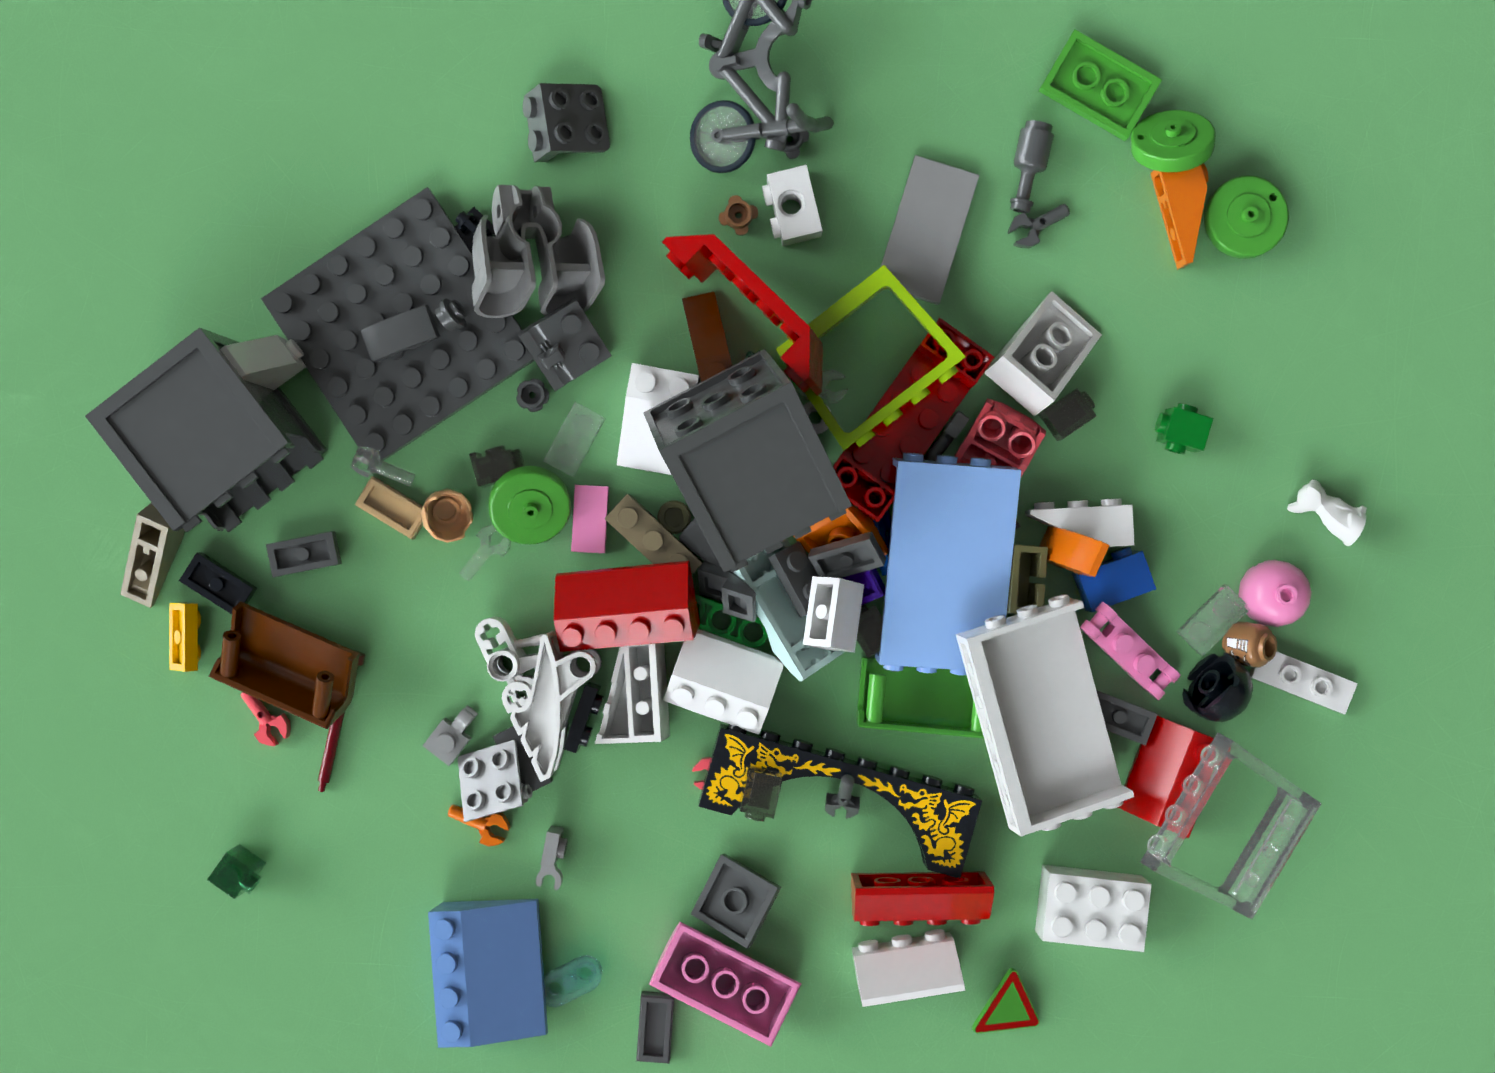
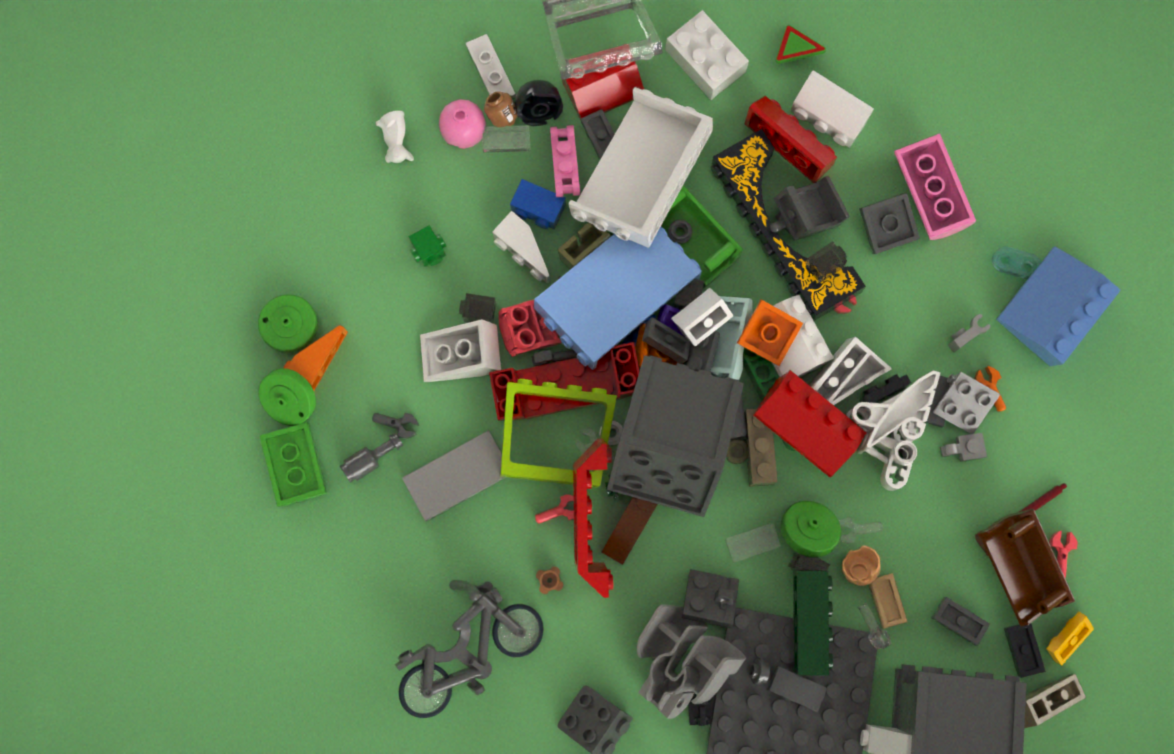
camera: 135 degrees left, 10 degrees down
(237, 872) = (1151, 481): clear green brick -> none
(443, 409) = (811, 622): none -> dark green brick
(532, 404) = (748, 584): dark grey plate -> none
(589, 525) = (783, 492): bright pink tile -> none
(645, 390) = (690, 528): white slope -> none
(655, 1027) = (992, 199): dark grey tile -> none
(733, 592) = (746, 372): dark grey slope -> none
(750, 662) = (770, 332): none -> orange slope
(792, 185) = (517, 540): white brick -> none
(796, 287) = (557, 511): none -> coral bar
(830, 840) = (811, 208): none -> dark grey panel
(950, 695) = (680, 224): none -> dark grey plate
(1074, 551) = (546, 234): orange slope -> none

